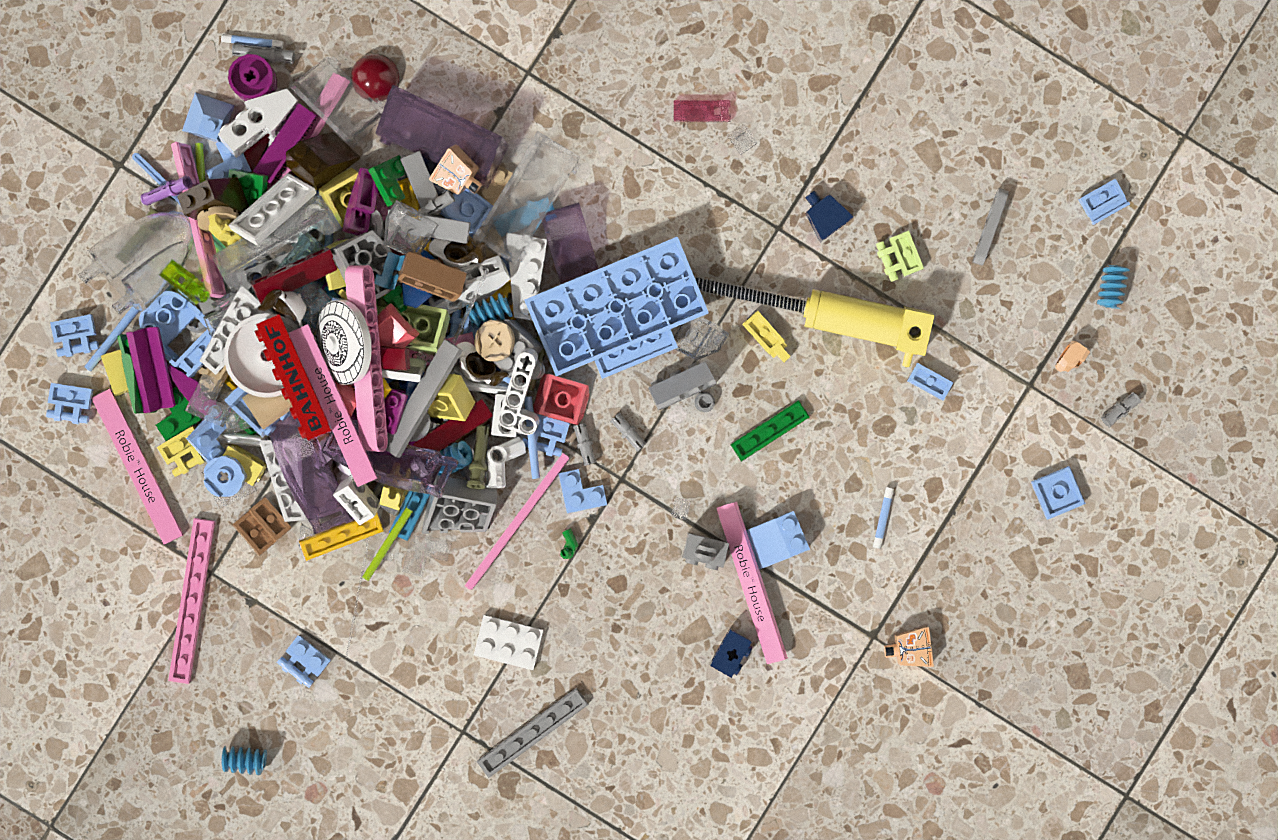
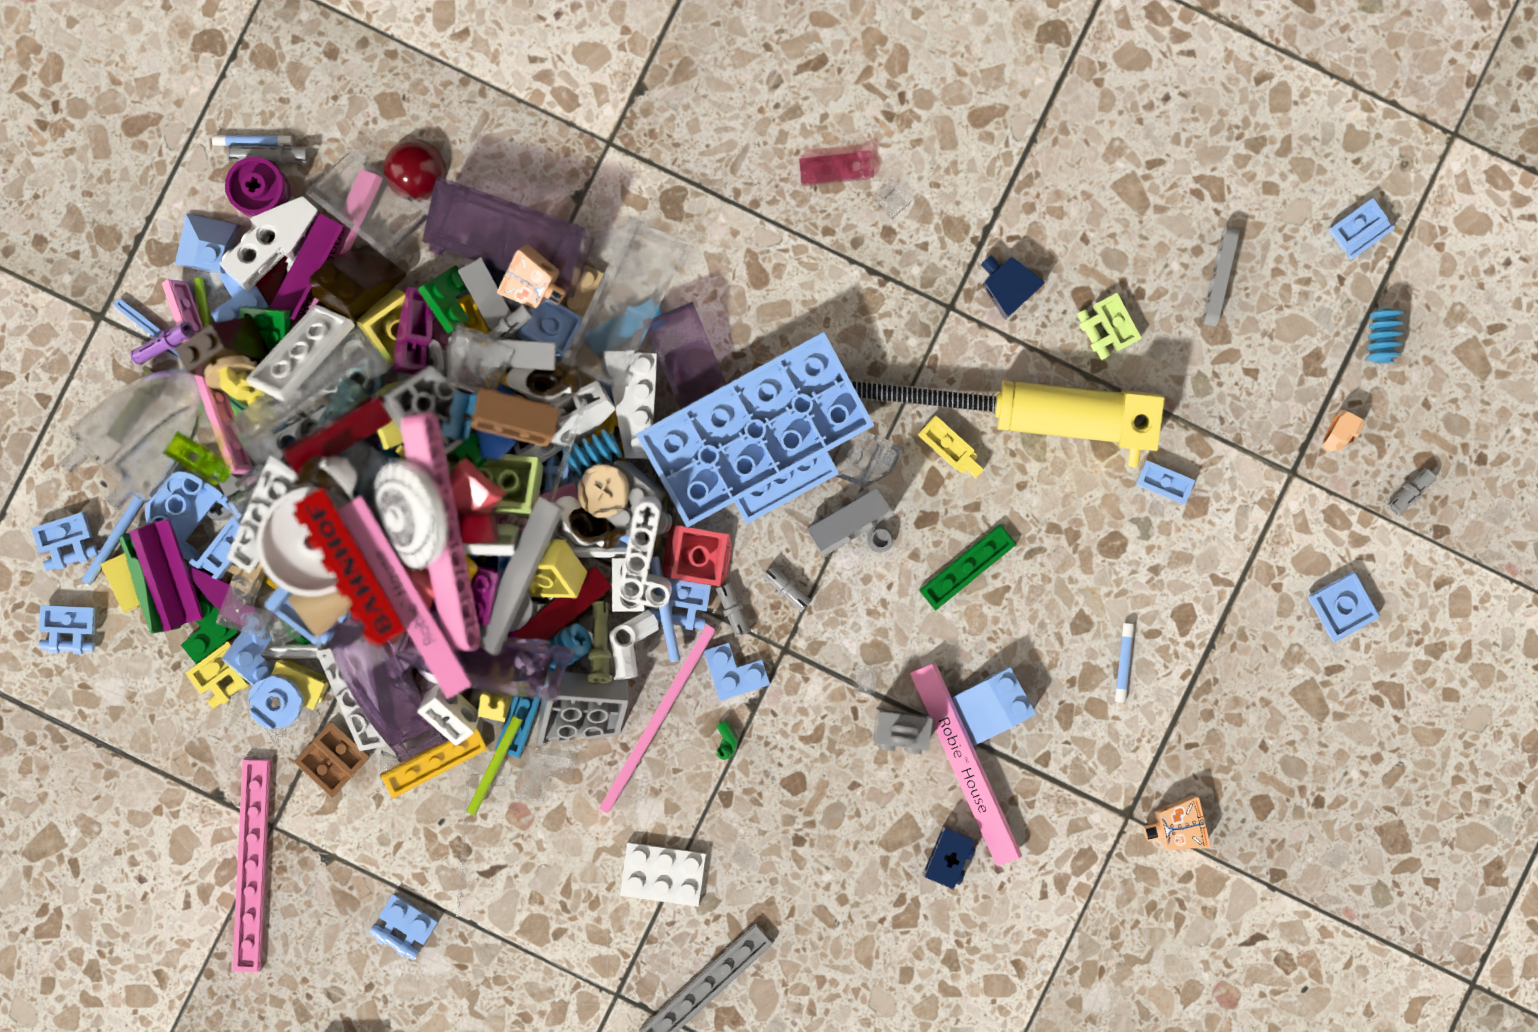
camera: 10 degrees left, 0 degrees up
(137, 466) = (163, 700): bright pink tile -> none

